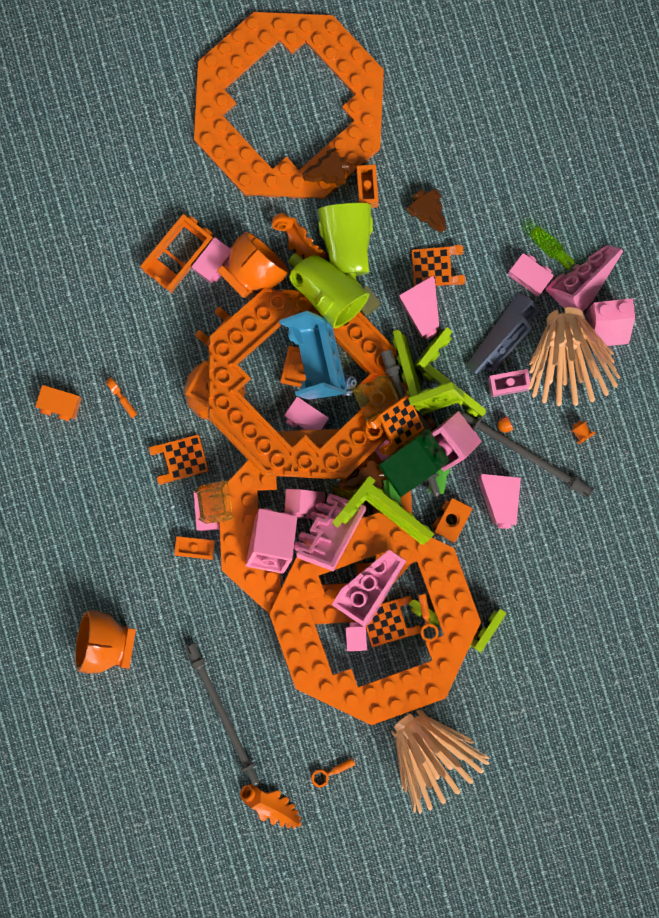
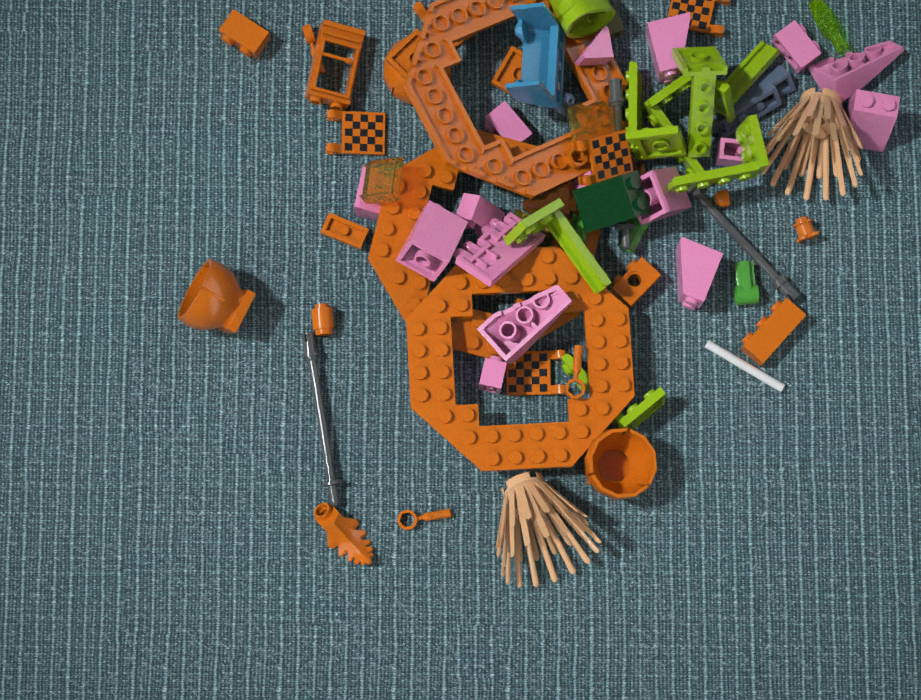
camera: 10 degrees right, 5 degrees down
(142, 381) = (343, 36): none -> orange door
(199, 629) = (322, 319): none -> orange brick
(363, 329) = (598, 50): none -> bright pink slope
(458, 323) = (703, 66): none -> lime bracket
(481, 339) = (742, 78): none -> lime bracket
(485, 683) = (620, 463): none -> orange plate
(521, 386) = (752, 155): none -> lime bracket
(547, 497) = (746, 290): none -> bright green piece
(564, 563) = (744, 365): none -> white bar
(579, 527) = (772, 331): none -> orange brick

